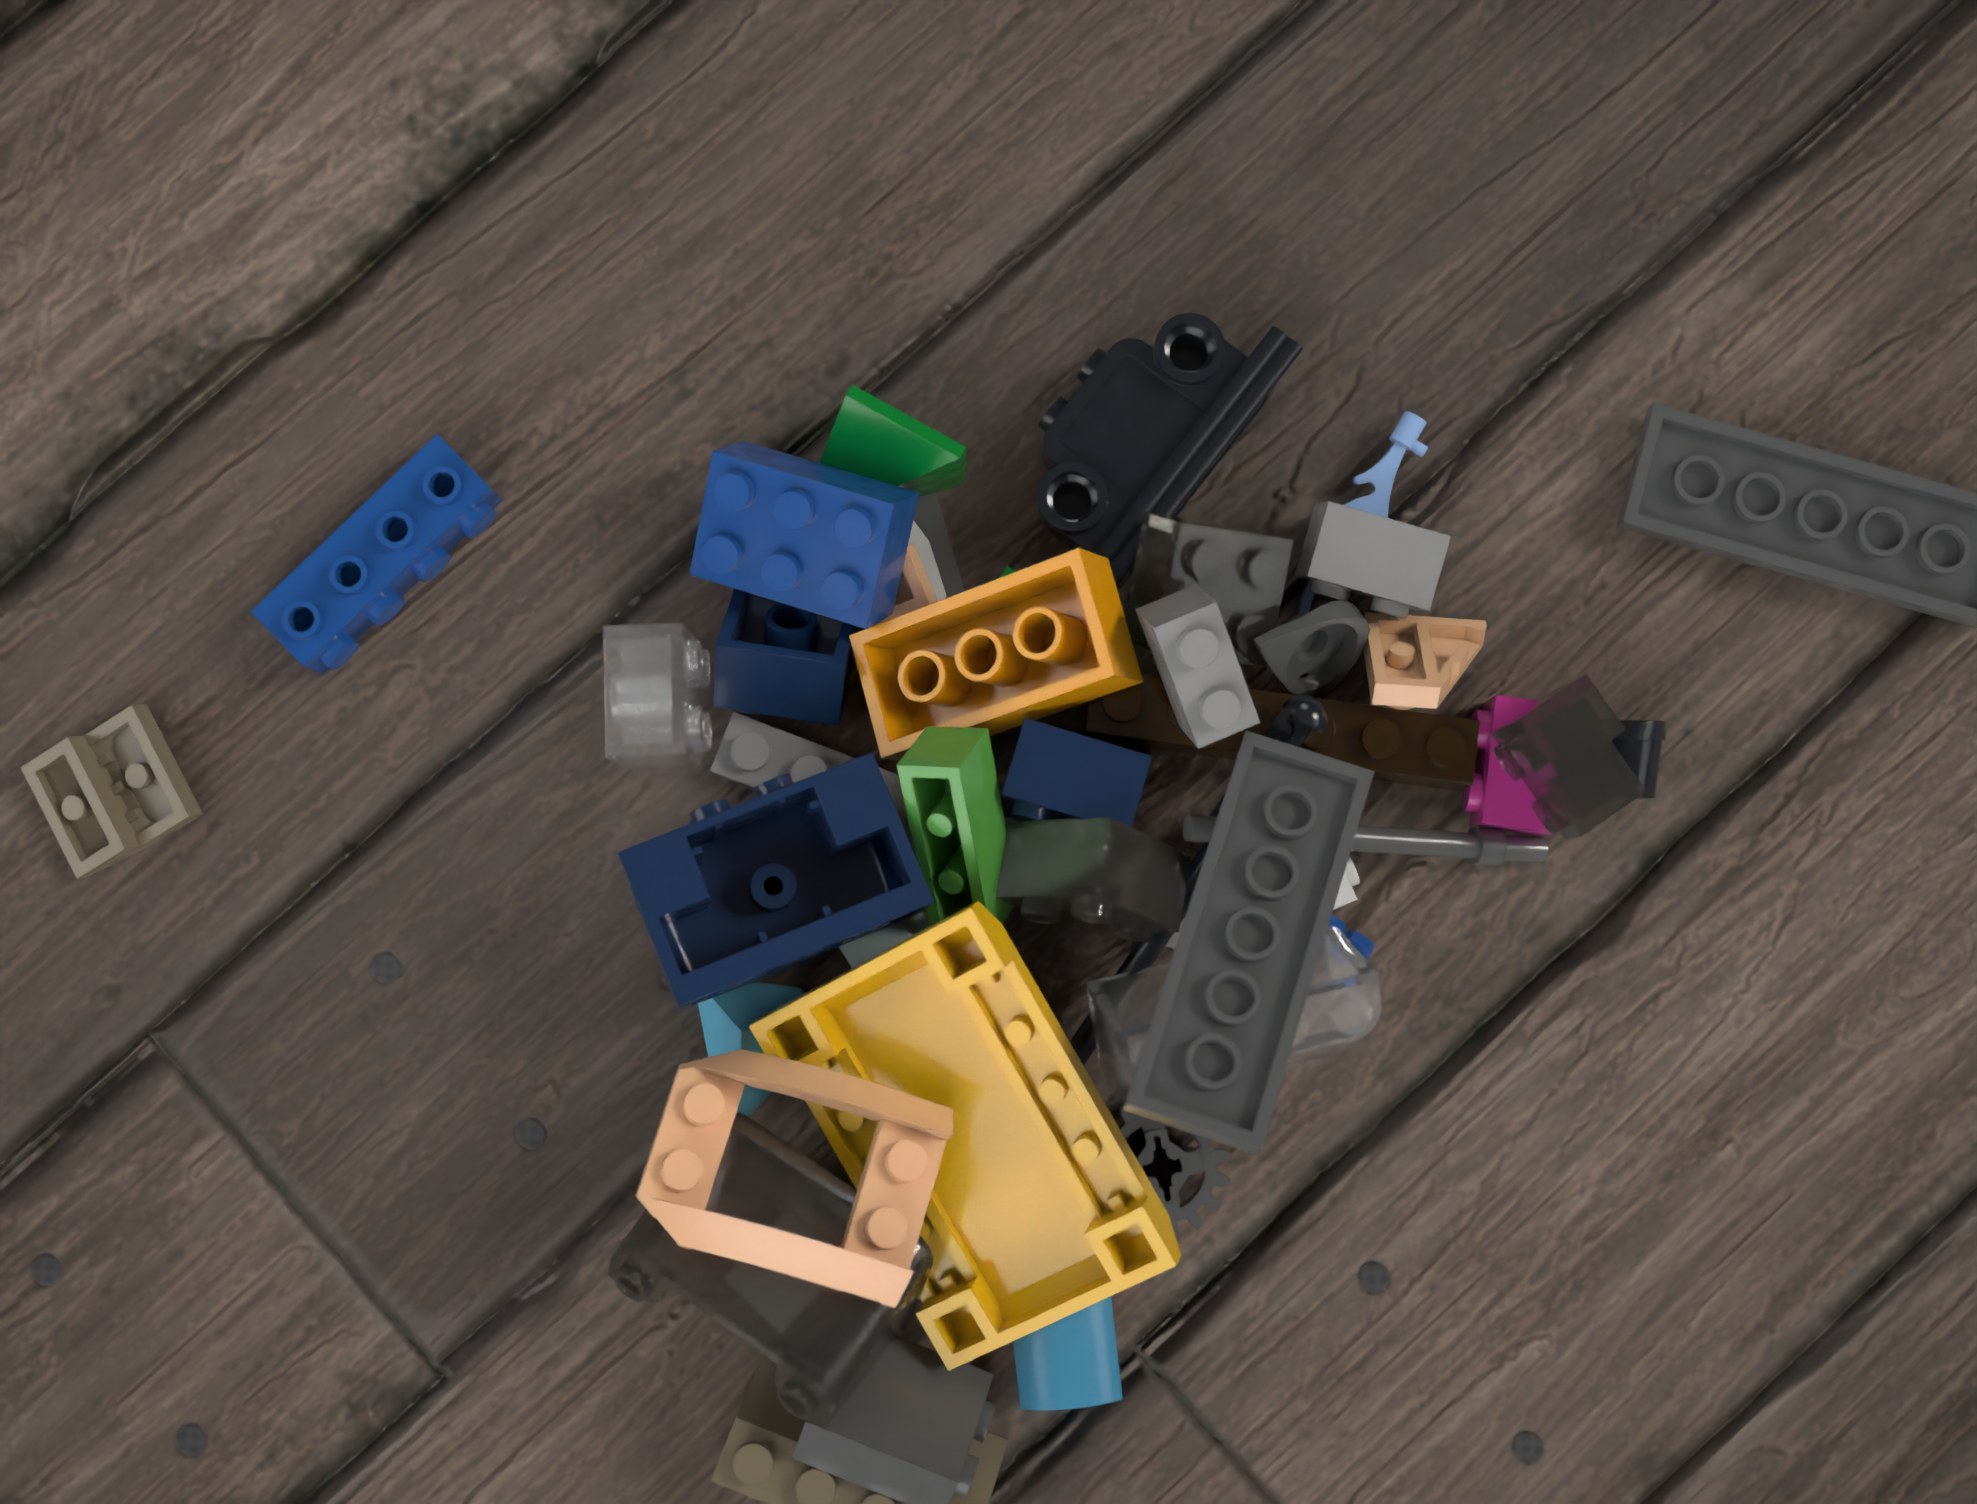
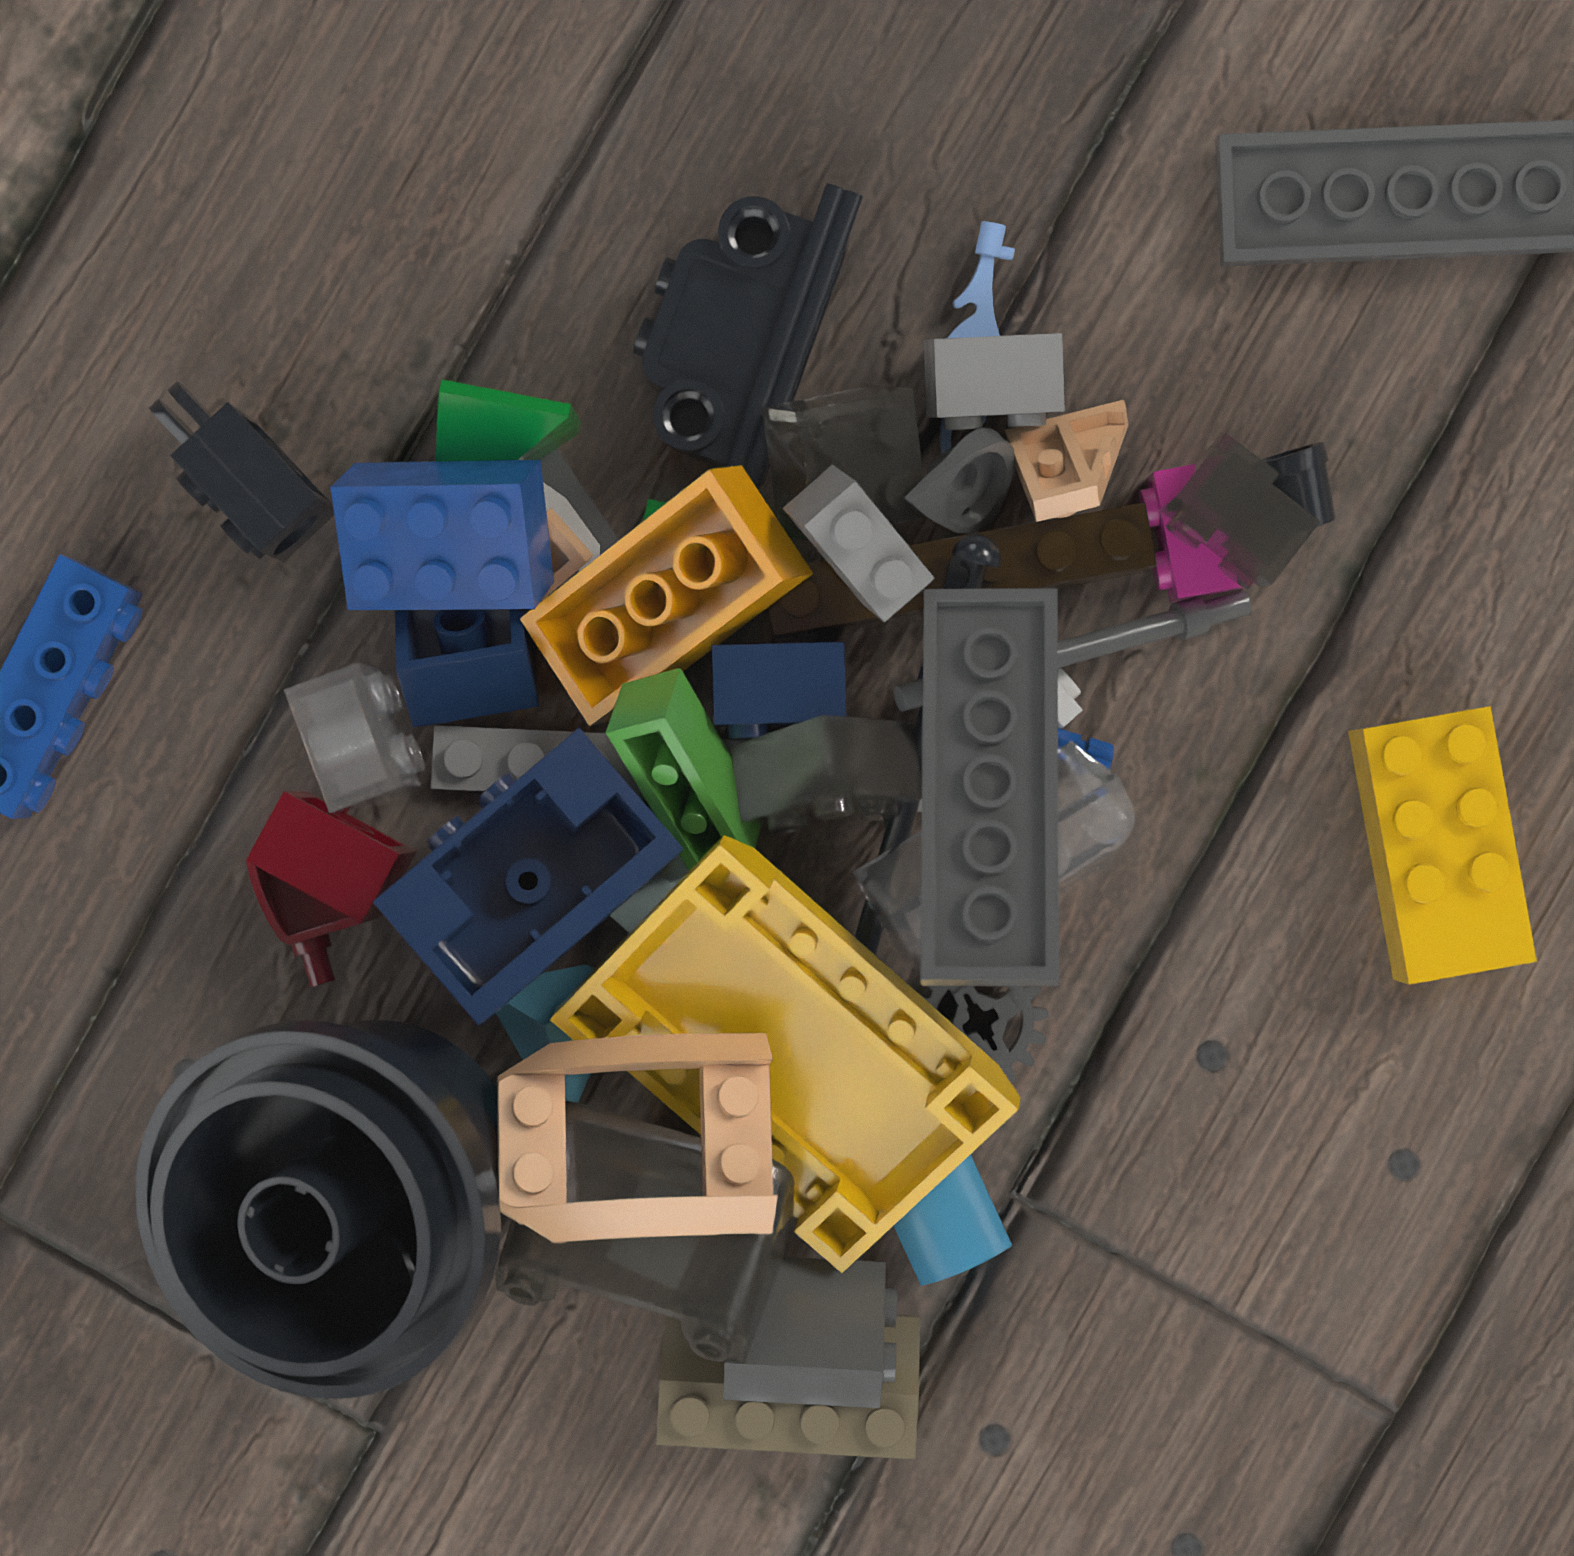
camera: 15 degrees left, 5 degrees up
(469, 1132) = (325, 1202): none -> black piece
(573, 816) = (320, 875): none -> dark red piece
(637, 419) = (244, 475): none -> black brick
(1662, 1146) = (1442, 846): none -> yellow brick

